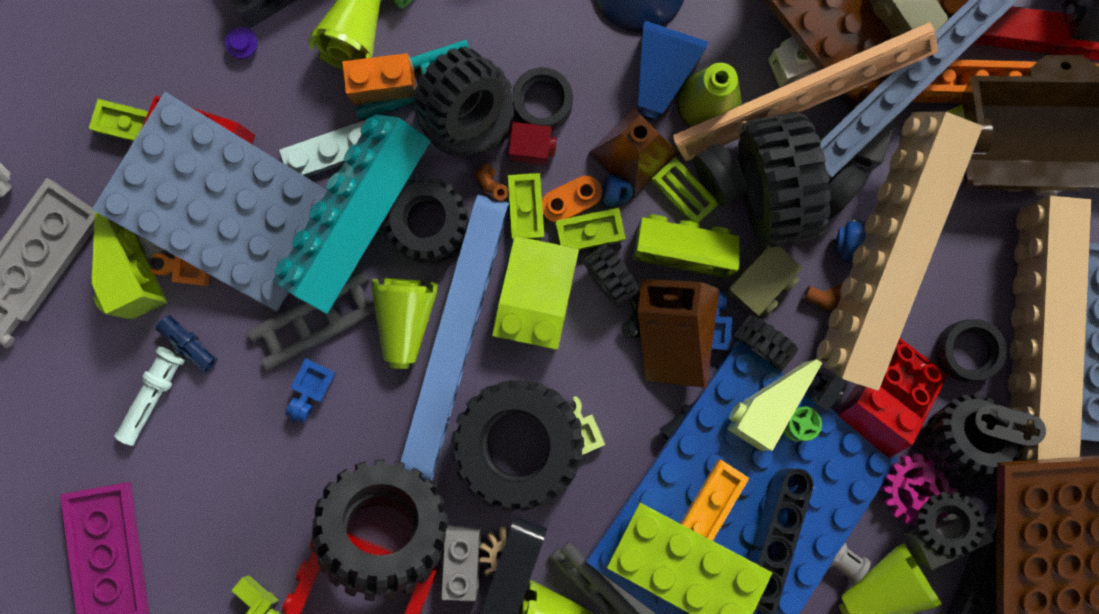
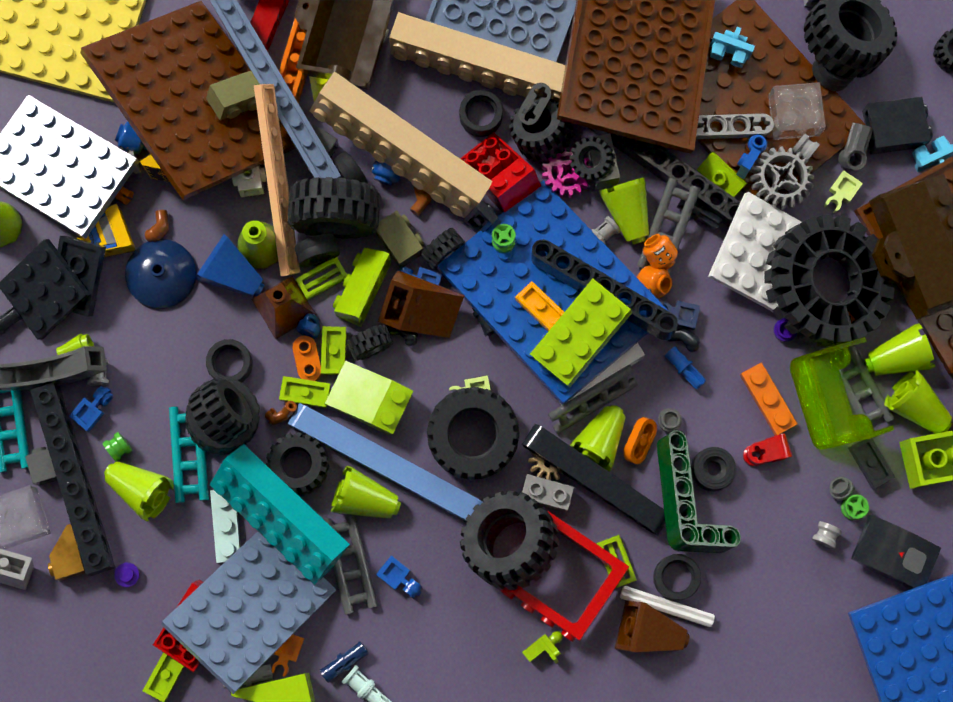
camera: 85 degrees left, 5 degrees down
(379, 78) = (185, 473): orange brick -> none
(531, 144) = (260, 376): dark red brick -> none
(766, 413) = (490, 258): yellowish green slope -> none

